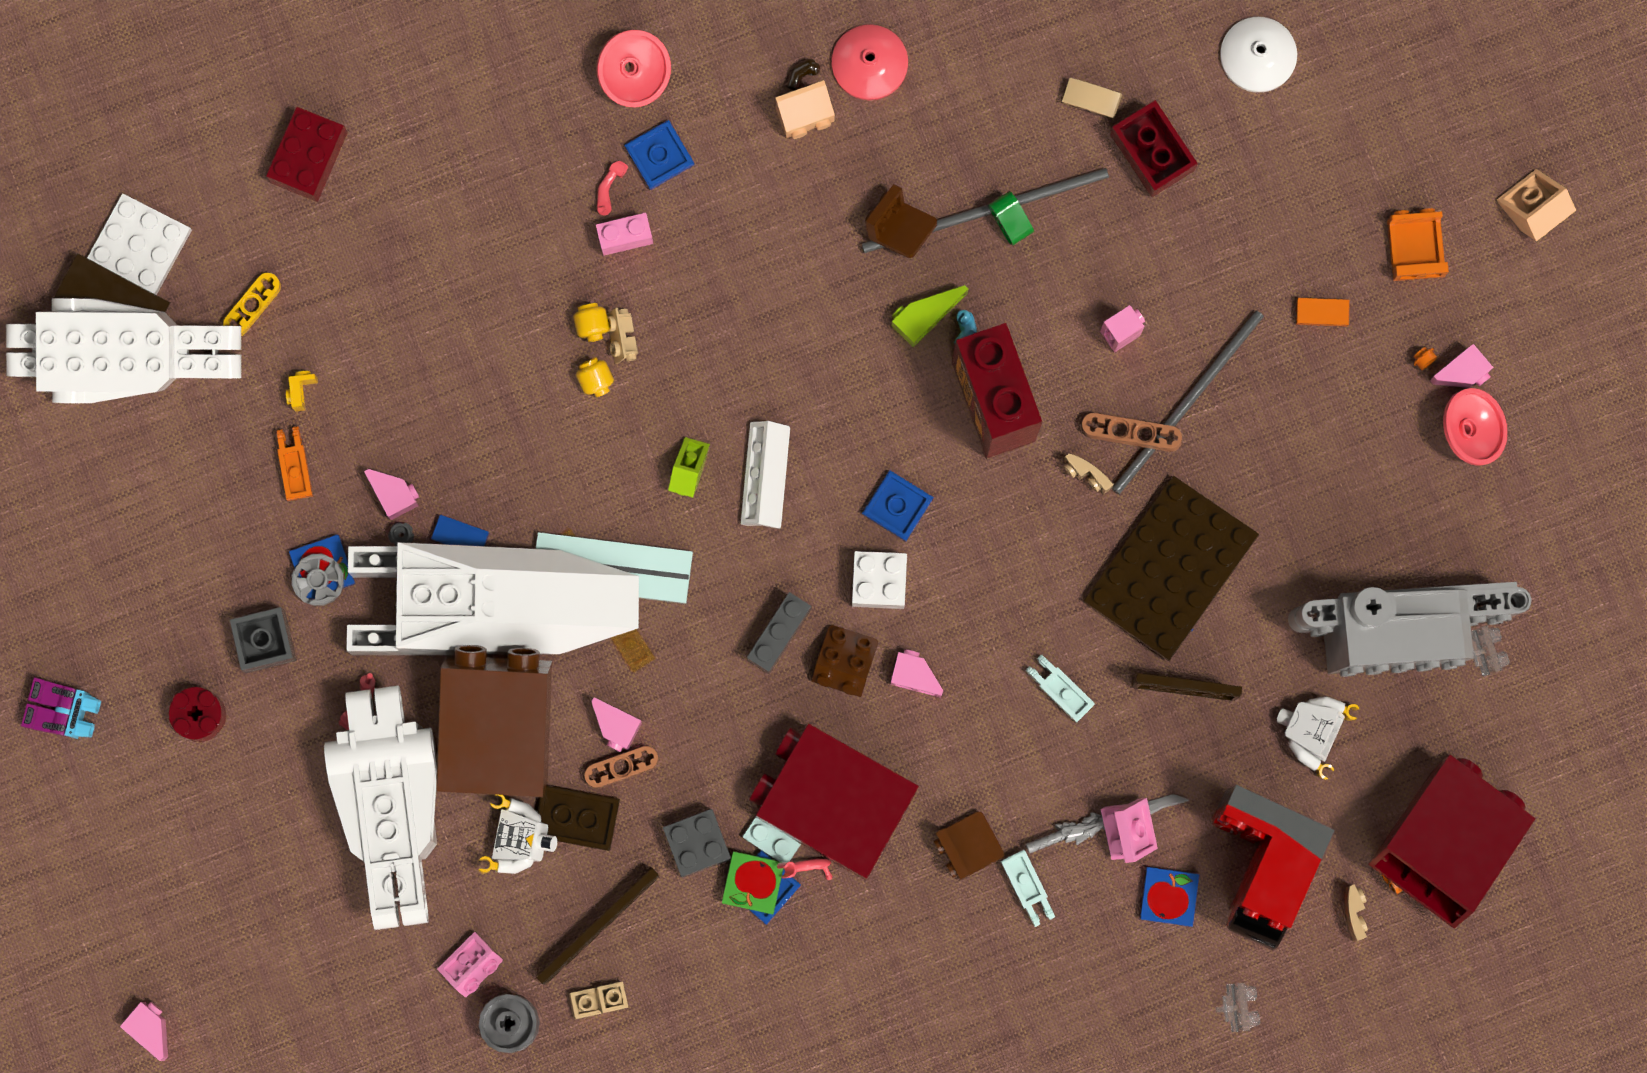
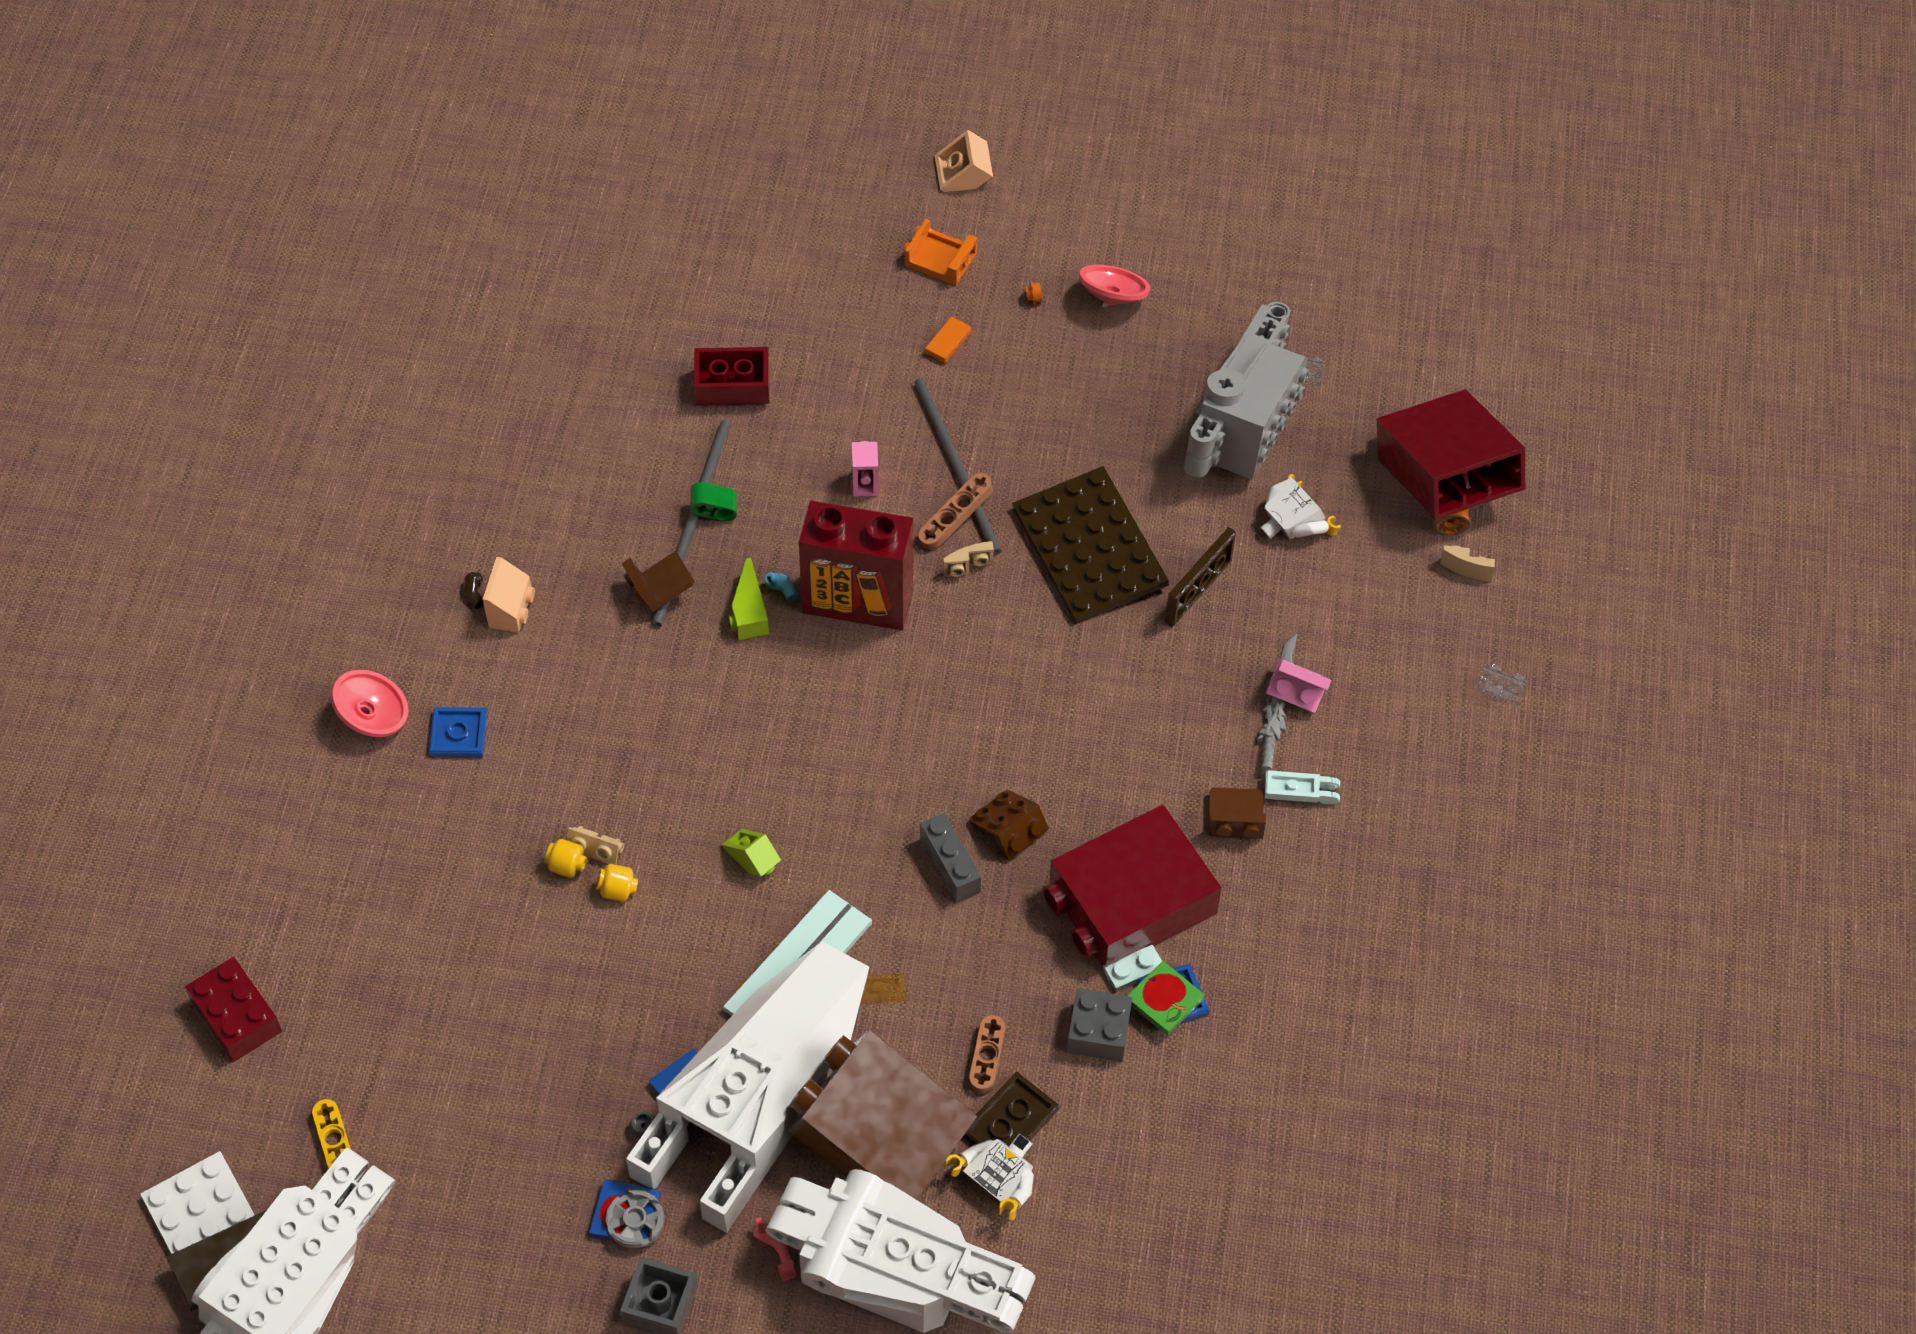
camera: 60 degrees left, 25 degrees down
(294, 467) = (512, 1183): orange hinge -> none
(295, 394) = (443, 1140): yellow bracket -> none
(393, 493) = (598, 1109): bright pink slope -> none
(470, 965) = (1093, 1286): bright pink bracket -> none
(493, 1025) = (1173, 1278): flat silver wheel -> none
(598, 927) = (1126, 1152): dark brown tile -> none
(598, 1000) = (1195, 1192): tan slope -> none
(603, 199) = (467, 797): coral piece -> none
(616, 725) = (944, 1036): bright pink slope -> none
(624, 234) = (507, 790): bright pink brick -> none
(765, 474) = (798, 798): white panel -> none
(805, 865) = (1172, 954): coral piece -> none
(869, 78) = (515, 543): coral dish -> none
(879, 580) = (955, 756): white brick -> none
(897, 506) = (898, 714): blue tile -> none
(914, 674) = (1058, 773): bright pink slope -> none
(1062, 690) = (1140, 674): light aqua hinge -> none
(1091, 98) = (656, 398): tan slope -> none
(1169, 897) = (1373, 689): tile -> none
(1255, 70) = (708, 279): white dish -> none
(1281, 865) = (1393, 572): red piece -> none
(1465, 370) = (1062, 271): bright pink slope -> none

